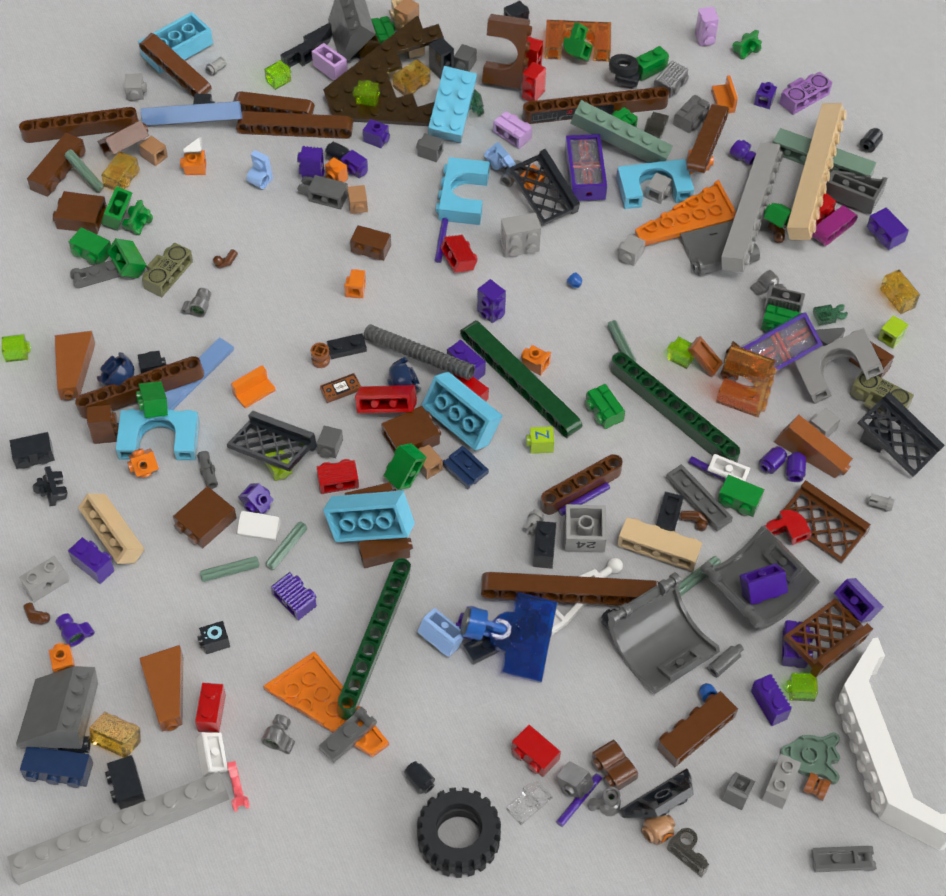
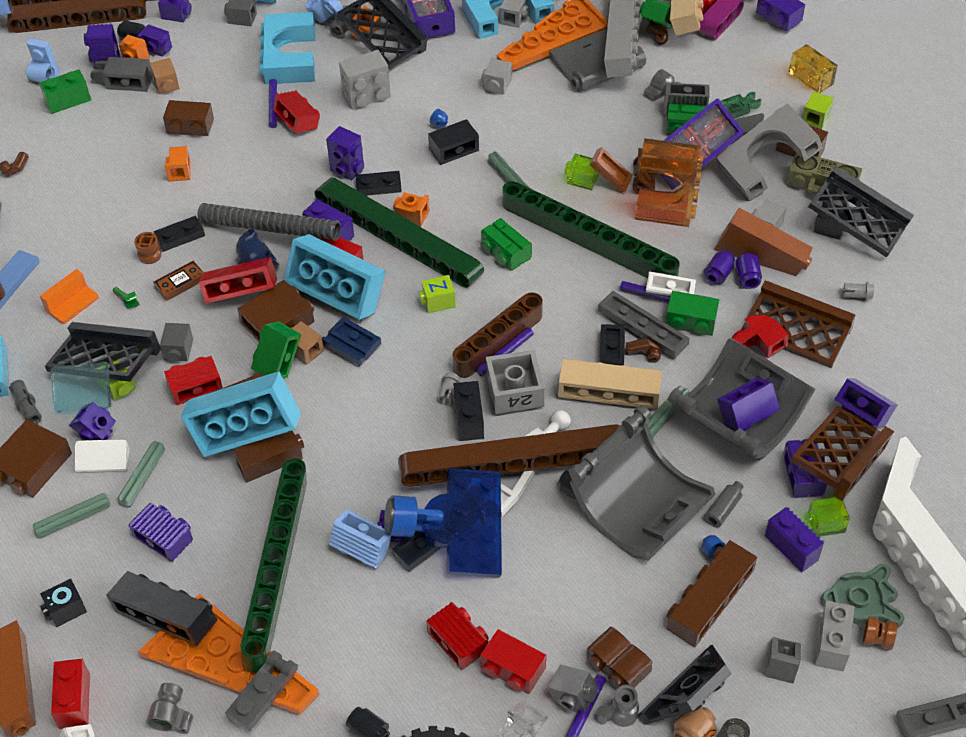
camera: 10 degrees left, 5 degrees down
(251, 467) = (80, 385): none -> clear light blue piece
(275, 199) = (65, 91): none -> green brick
(286, 657) = (162, 607): none -> black brick
(299, 397) = (130, 300): none -> green hand
(498, 721) = (457, 635): none -> red brick
(513, 330) = (379, 183): none -> black plate
(582, 305) = (453, 142): none -> black brick

